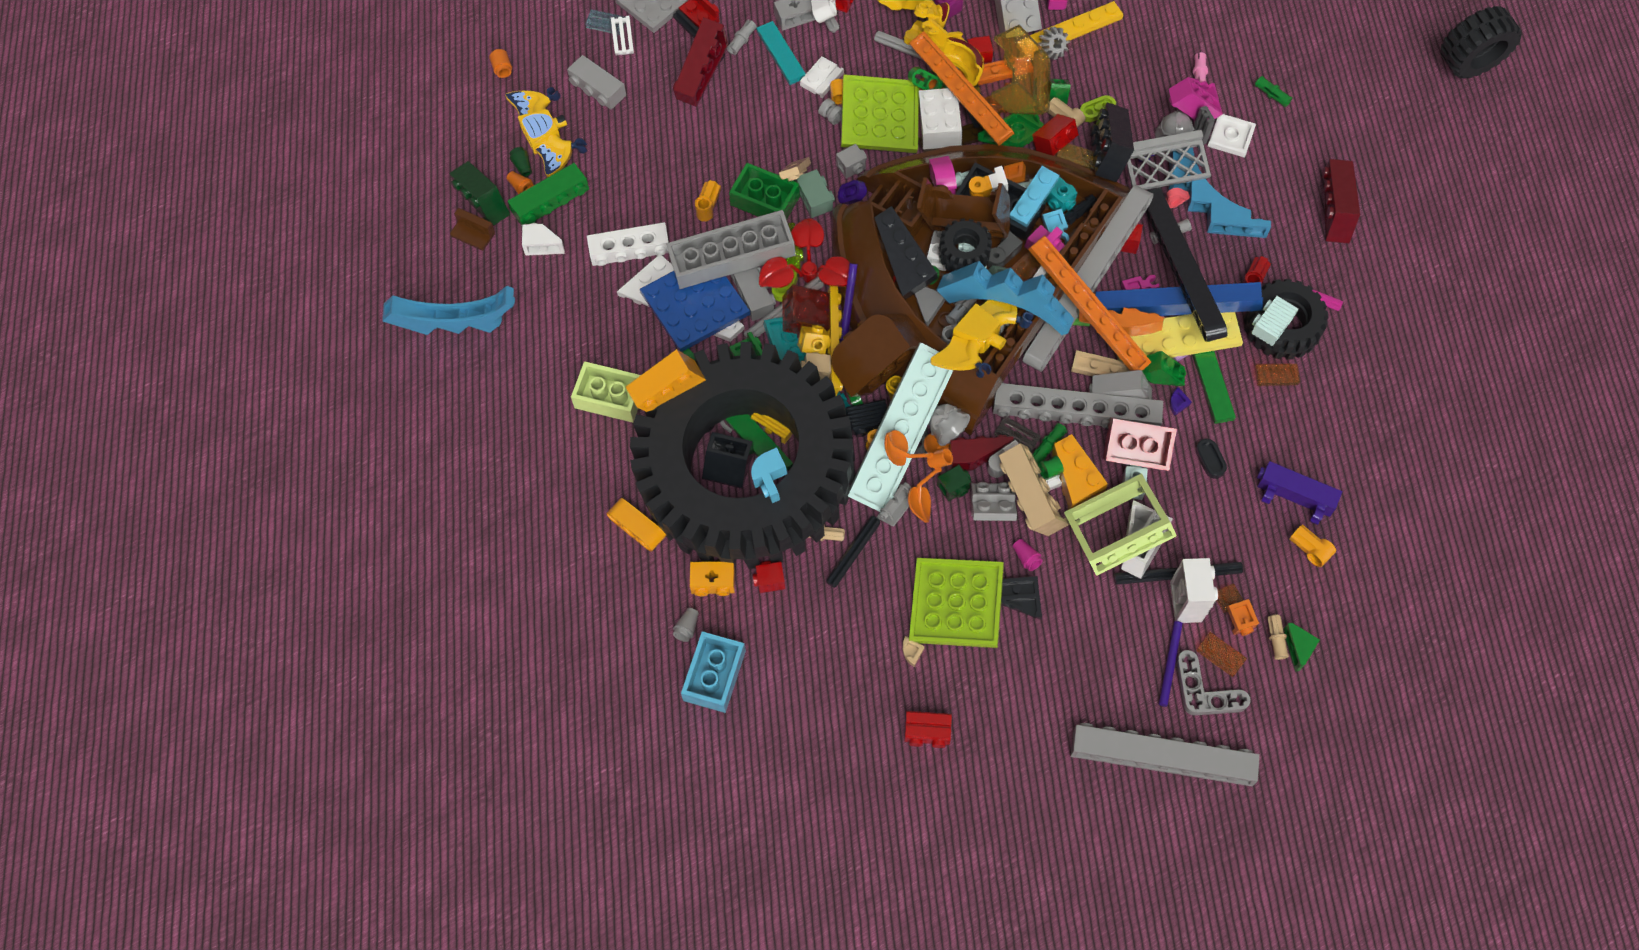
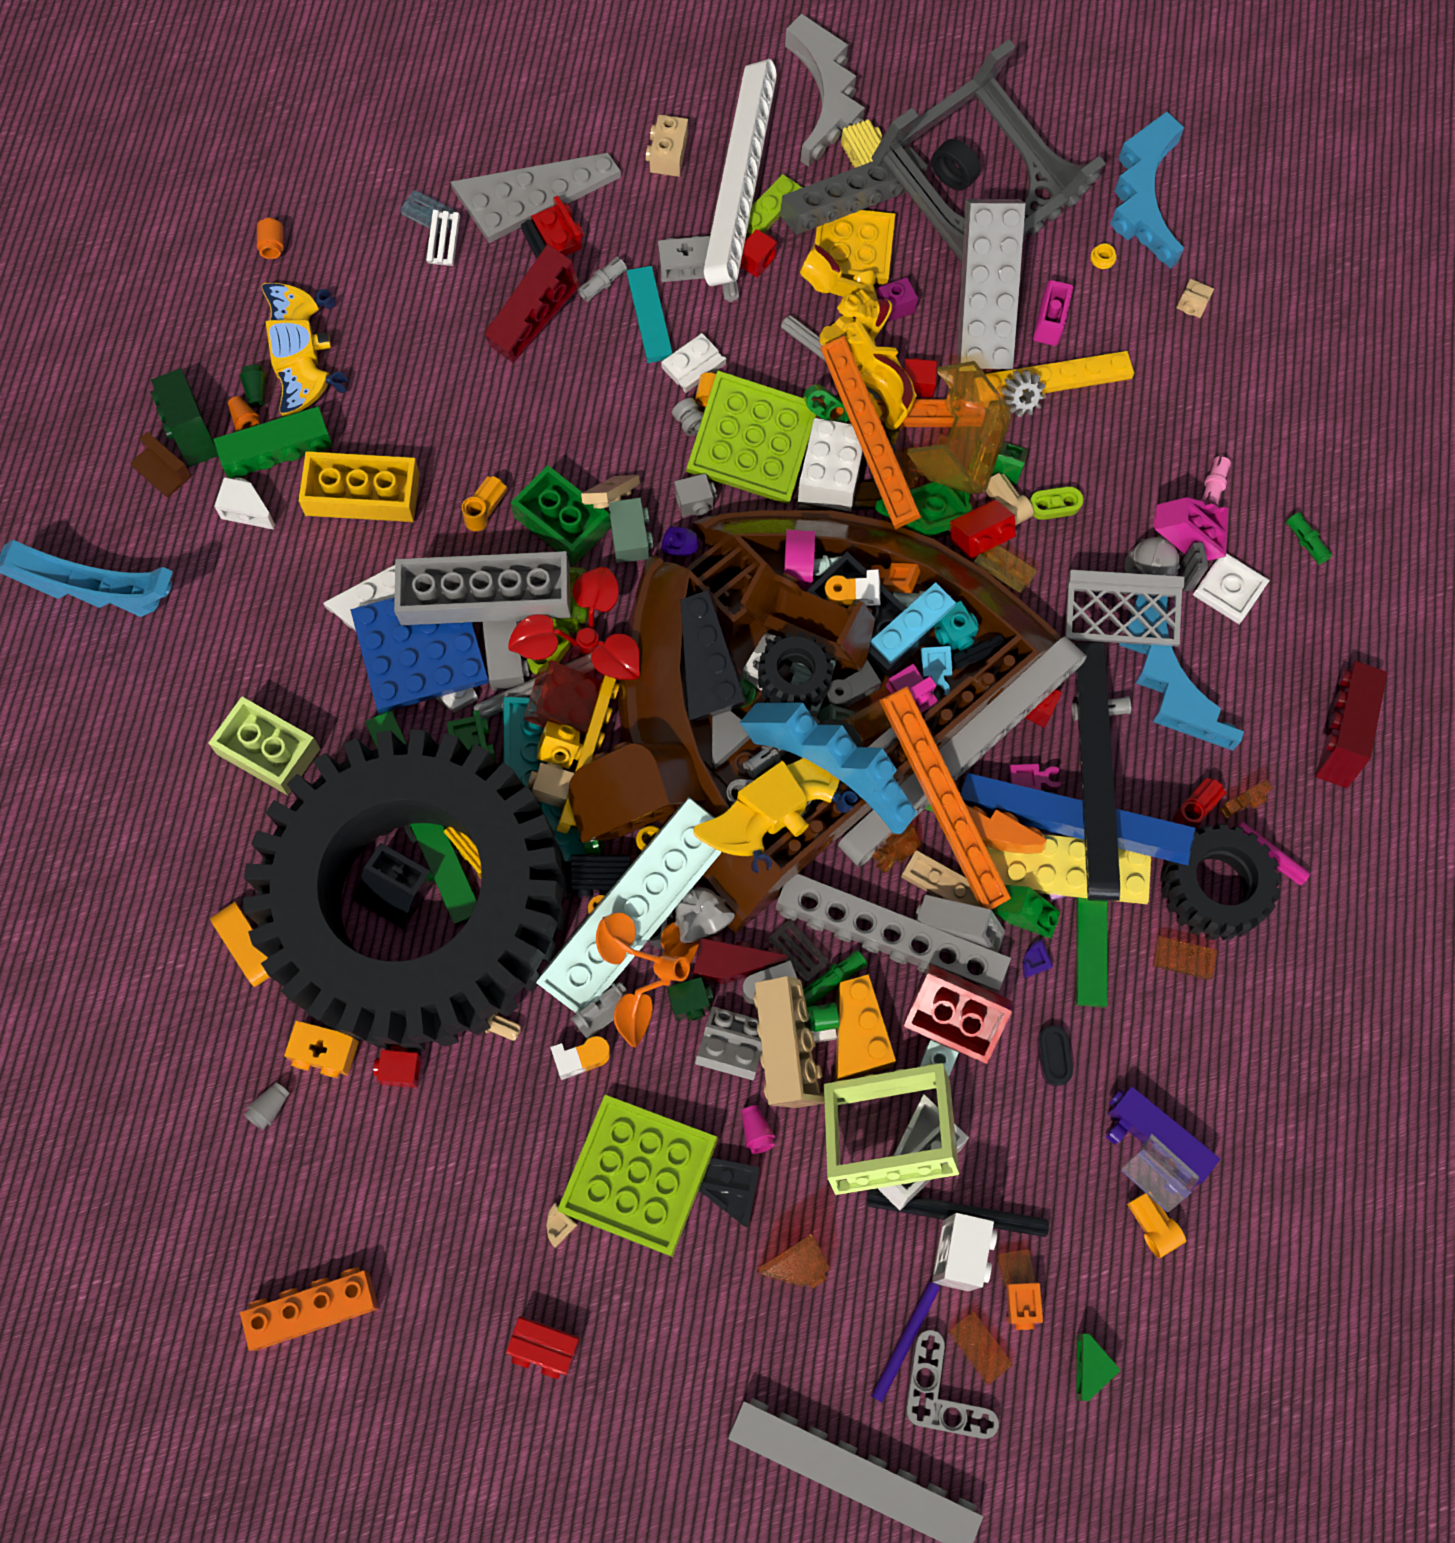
camera: 10 degrees right, 5 degrees up
(596, 82) = (387, 297): light grey brick -> none
(618, 207) = (359, 486): none -> yellow brick
(620, 239) = (319, 529): white brick -> none
(665, 381) = (322, 766): light orange wedge -> none
(713, 672) = (278, 1187): medium azure brick -> none
(759, 747) = (308, 1310): none -> orange brick
(765, 470) = (416, 931): medium azure brick -> none
(848, 299) = (622, 702): dark purple bar -> none
(853, 551) = (523, 1060): black axle -> none
(893, 539) = (582, 1058): none -> leg
(1064, 352) = (898, 849): none -> clear orange plate
(1083, 631) = (797, 1265): none -> clear orange slope
(1111, 142) = (1053, 562): black brick -> none
(1176, 197) = (1124, 661): coral tile -> none
(1274, 320) = (1198, 887): light aqua brick -> none
(1277, 637) = (1065, 1345): tan axle -> none
(1289, 262) = (1253, 797): none -> clear orange plate
(1306, 510) = (1160, 1174): none -> clear panel

